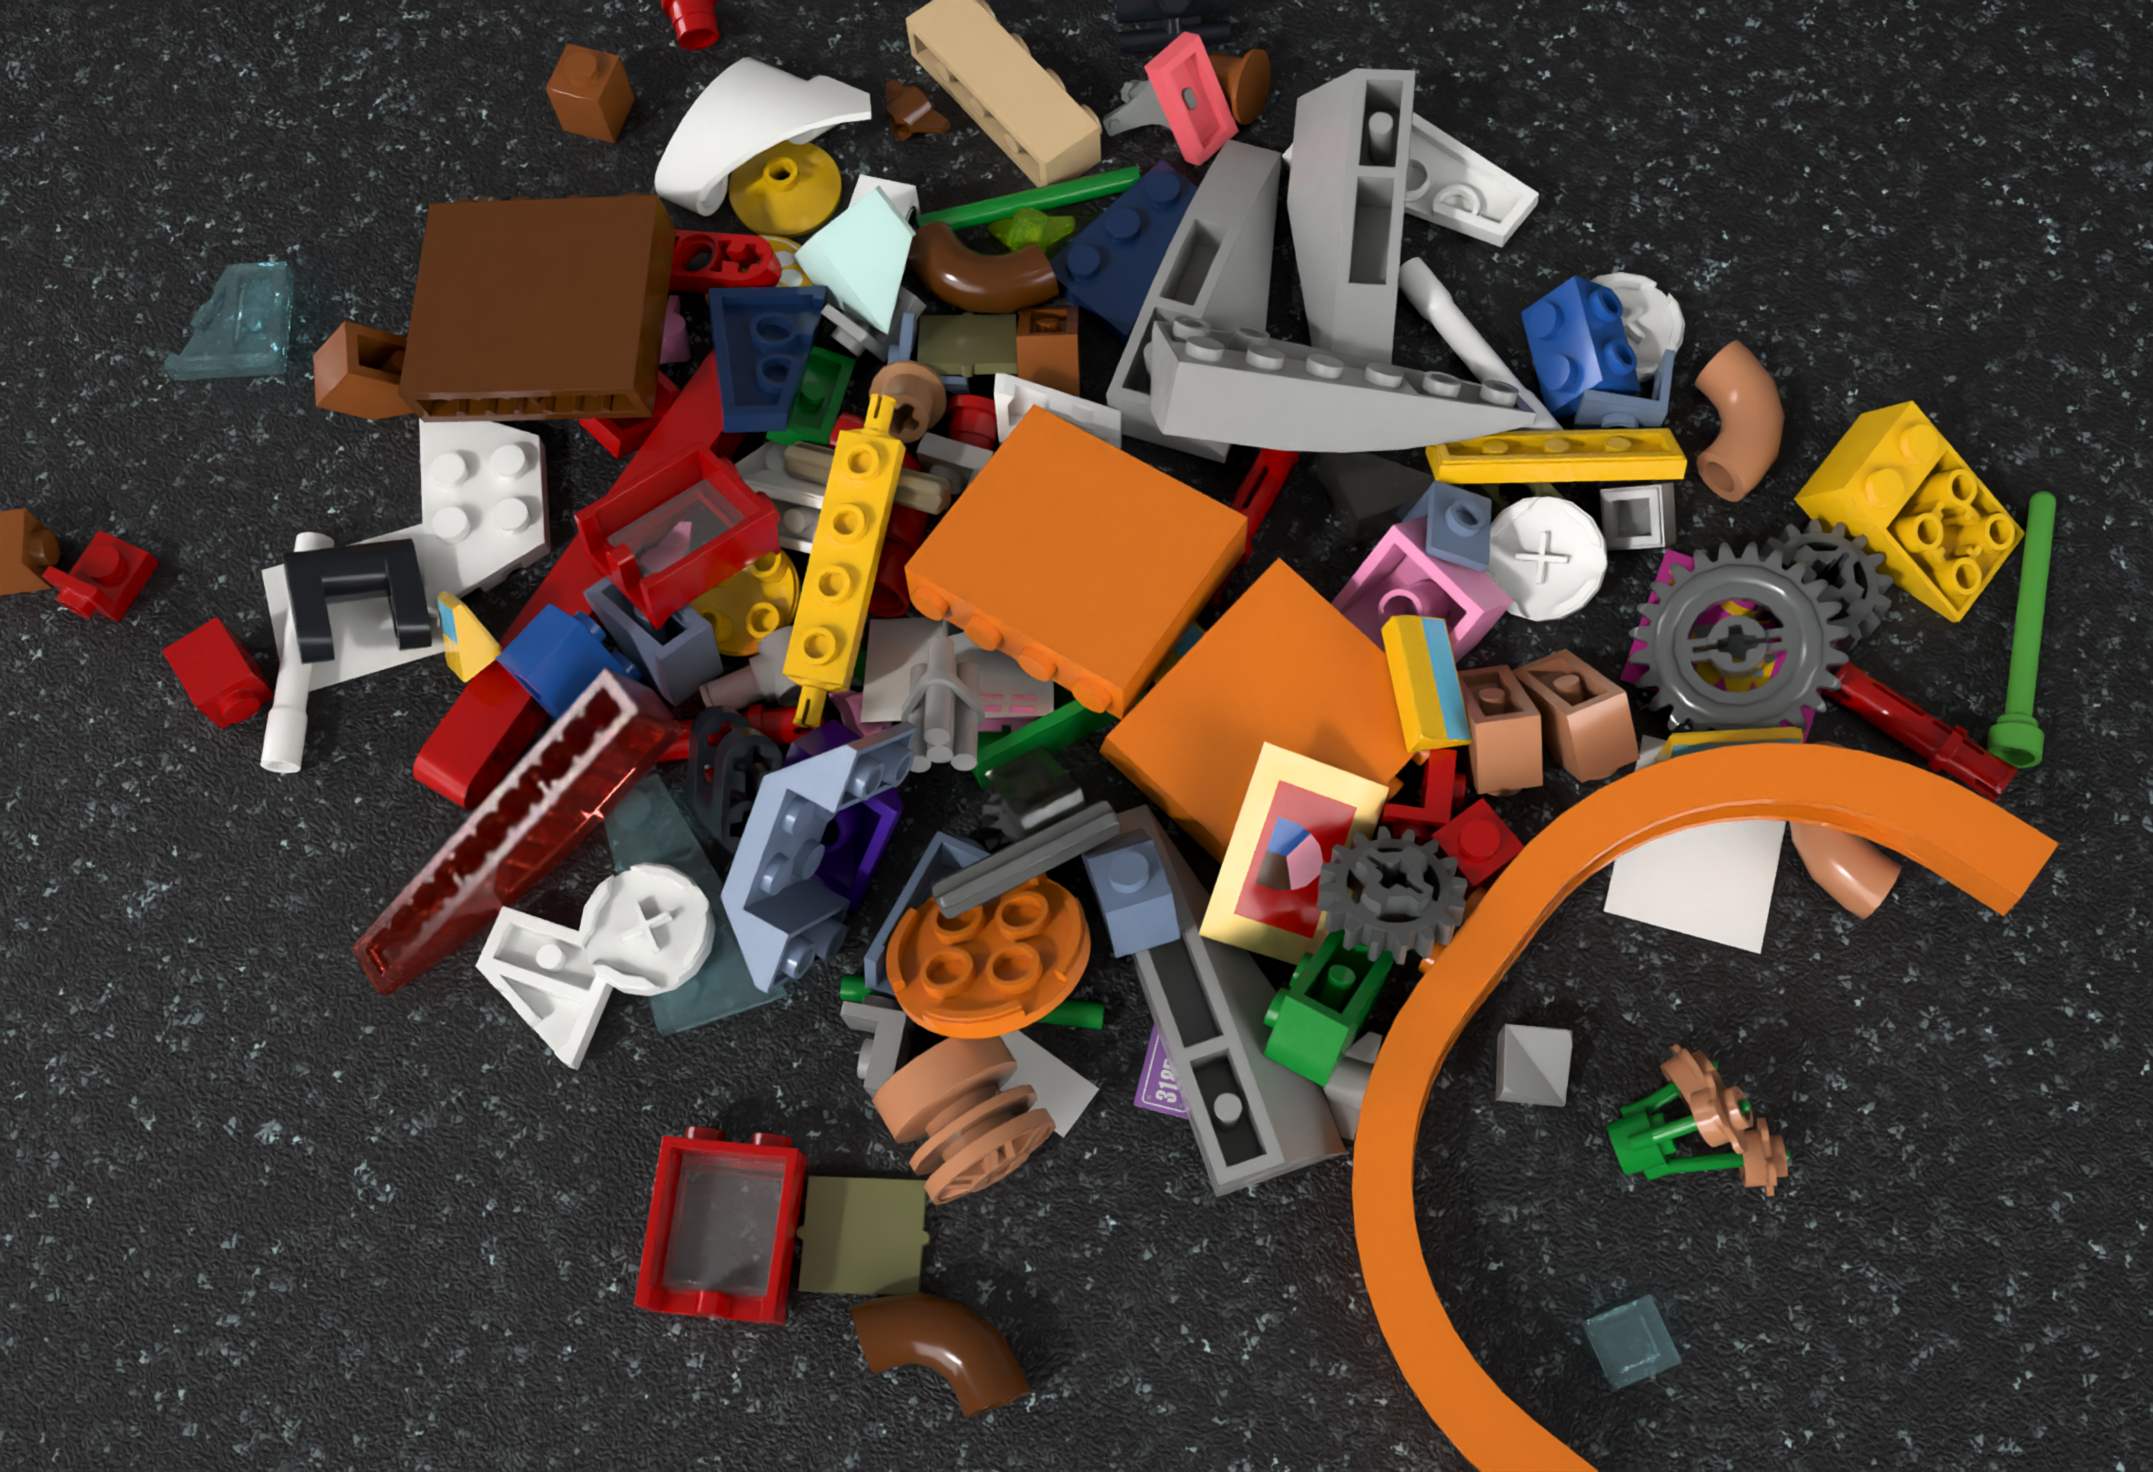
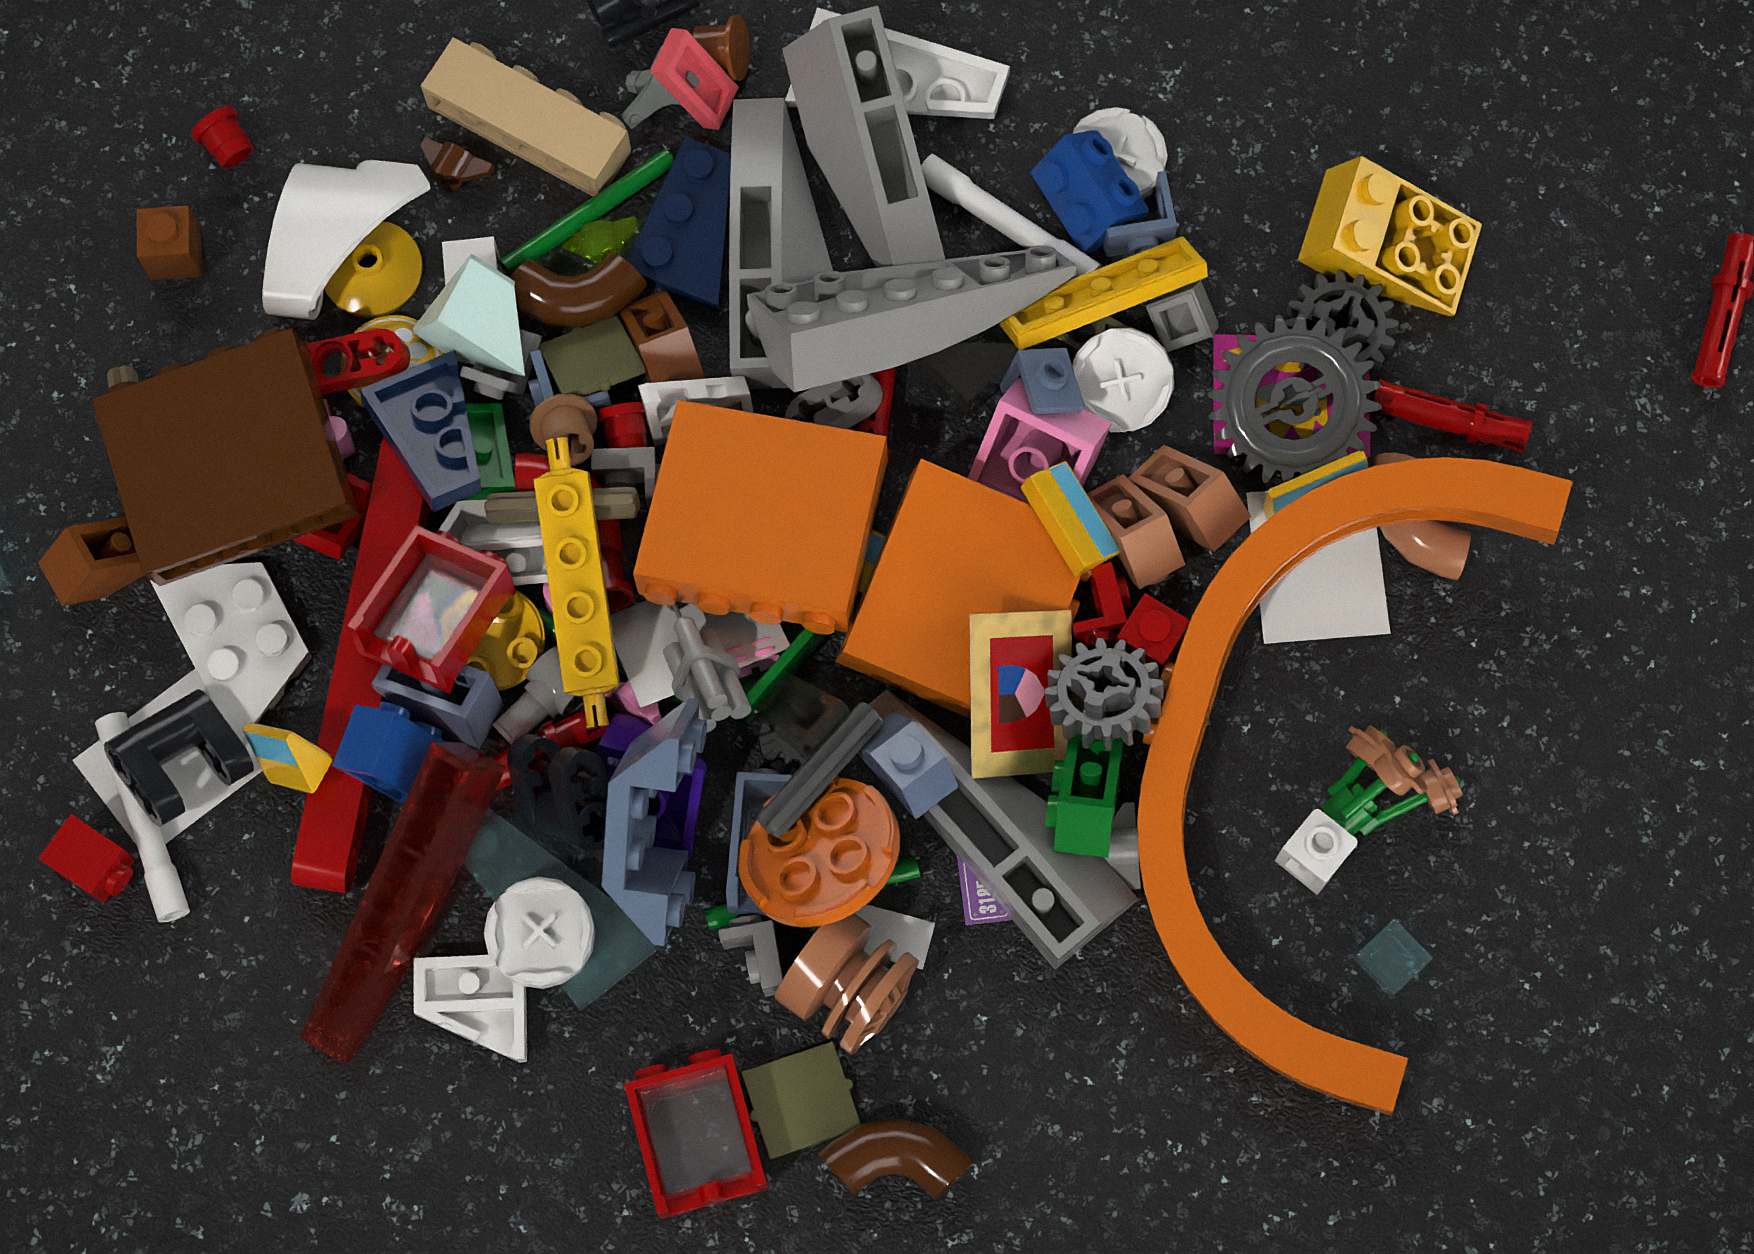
camera: 25 degrees left, 5 degrees up
(1214, 471) = (834, 402): none -> light grey beam
(1533, 1064) = (1252, 782): light grey slope -> none
(1582, 1175) = (1316, 850): none -> white bracket
(1749, 422) = (1242, 207): nougat cylinder -> none
(2016, 732) = (1523, 395): bright green piece -> none

